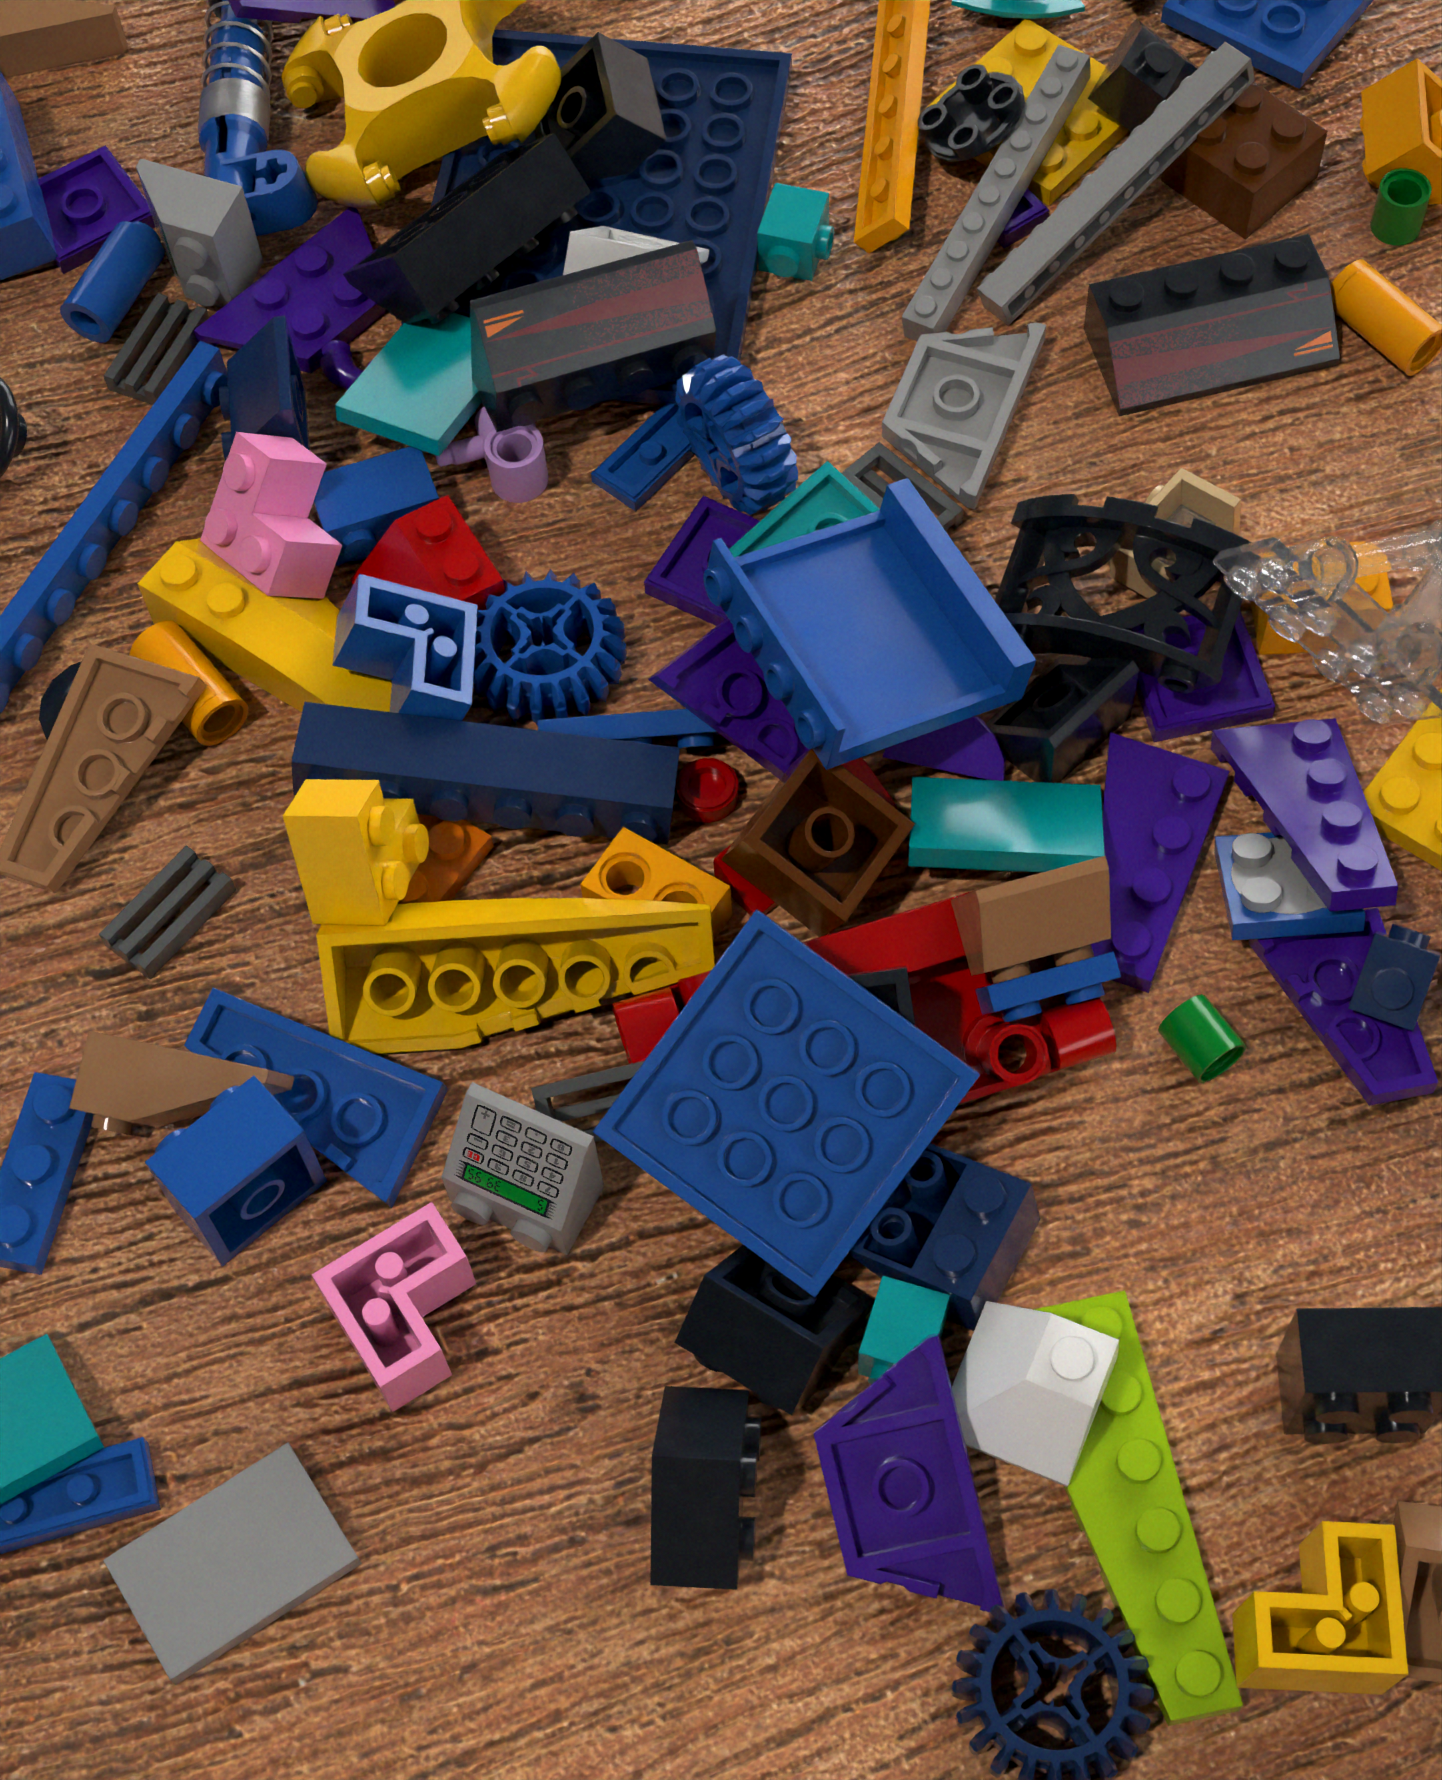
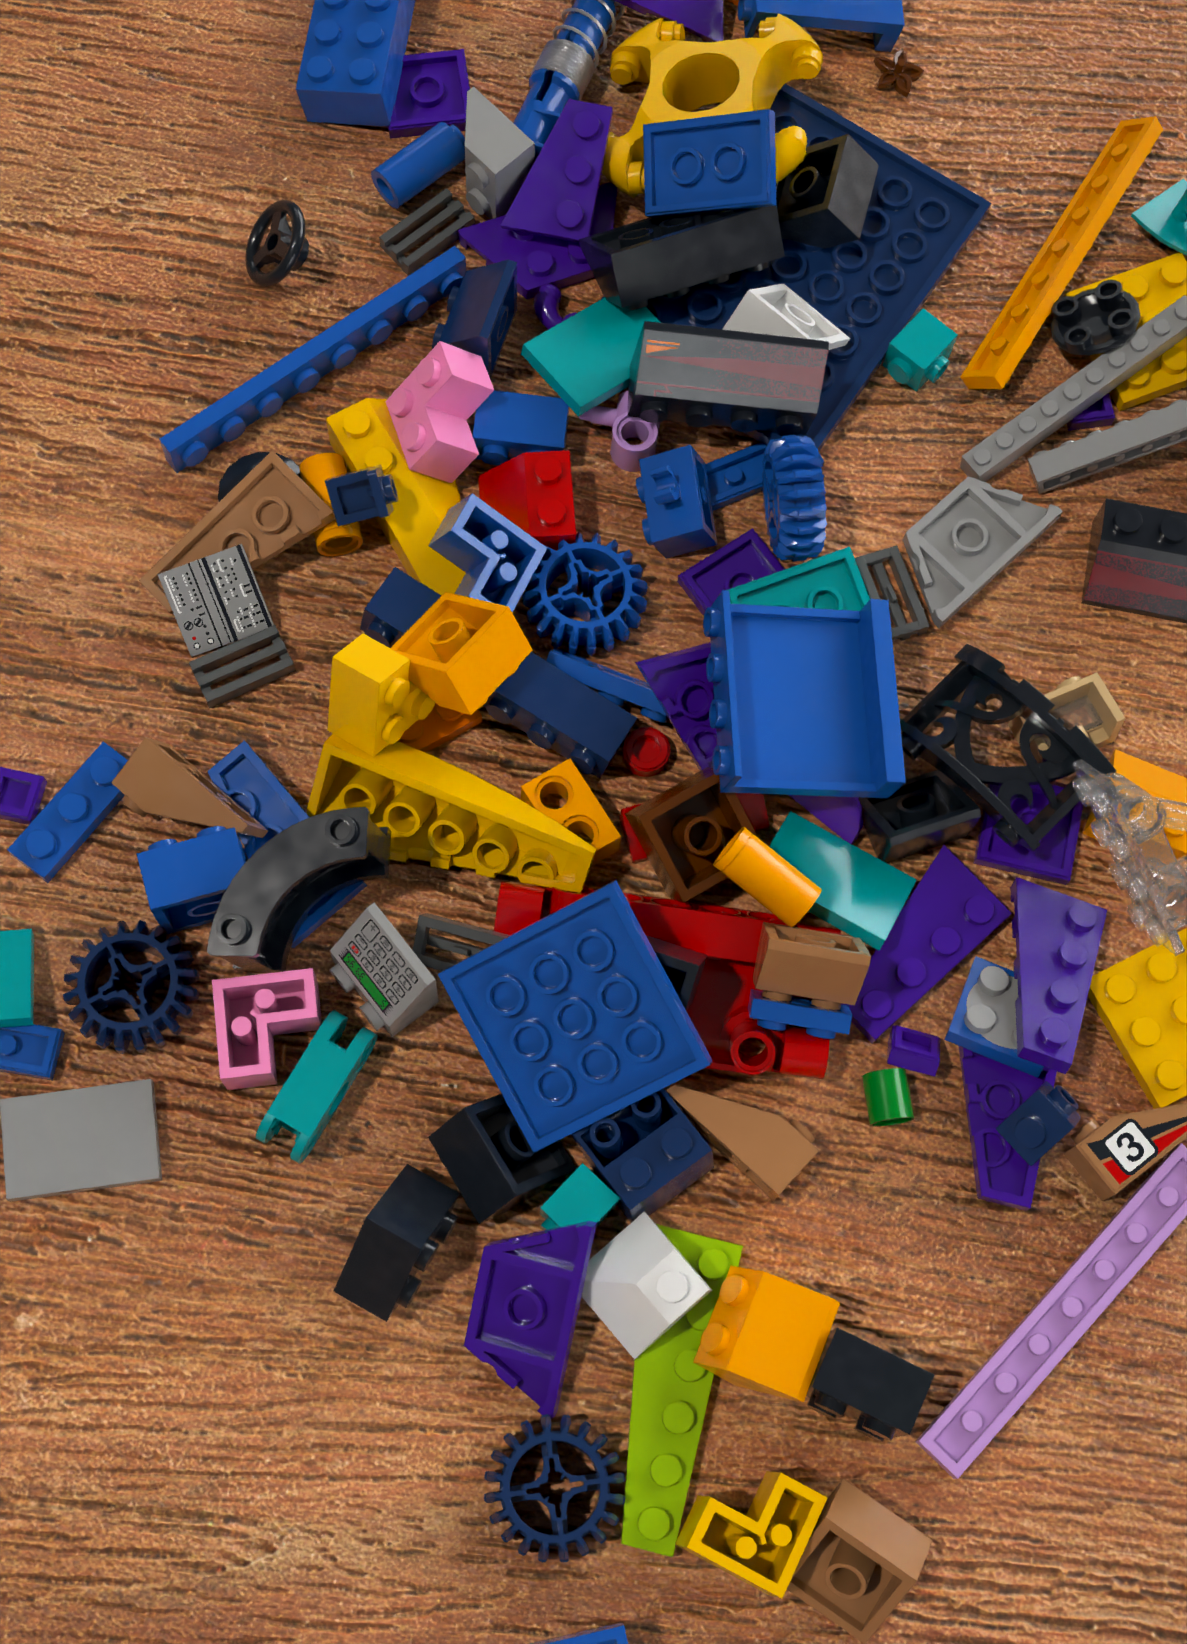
camera: 15 degrees right, 10 degrees up
(99, 846) = (216, 600): none -> light grey sticker
(224, 642) = (361, 495): none -> dark blue bracket
(238, 1295) = (114, 993): none -> dark blue gear
(294, 216) = (566, 176): none -> dark purple wing
(352, 1099) = (288, 878): none -> black fence
(438, 750) = (463, 651): none -> light orange slope
(457, 123) = (710, 164): none -> blue tile
(504, 1350) = (317, 1085): none -> teal piece
(601, 502) = (676, 502): none -> blue brick
(931, 841) = (767, 877): none -> light orange pin
(1072, 1160) = (753, 1140): none -> medium nougat slope
(1202, 971) = (913, 1050): none -> dark purple tile
(1213, 1370) = (766, 1333): none -> light orange slope

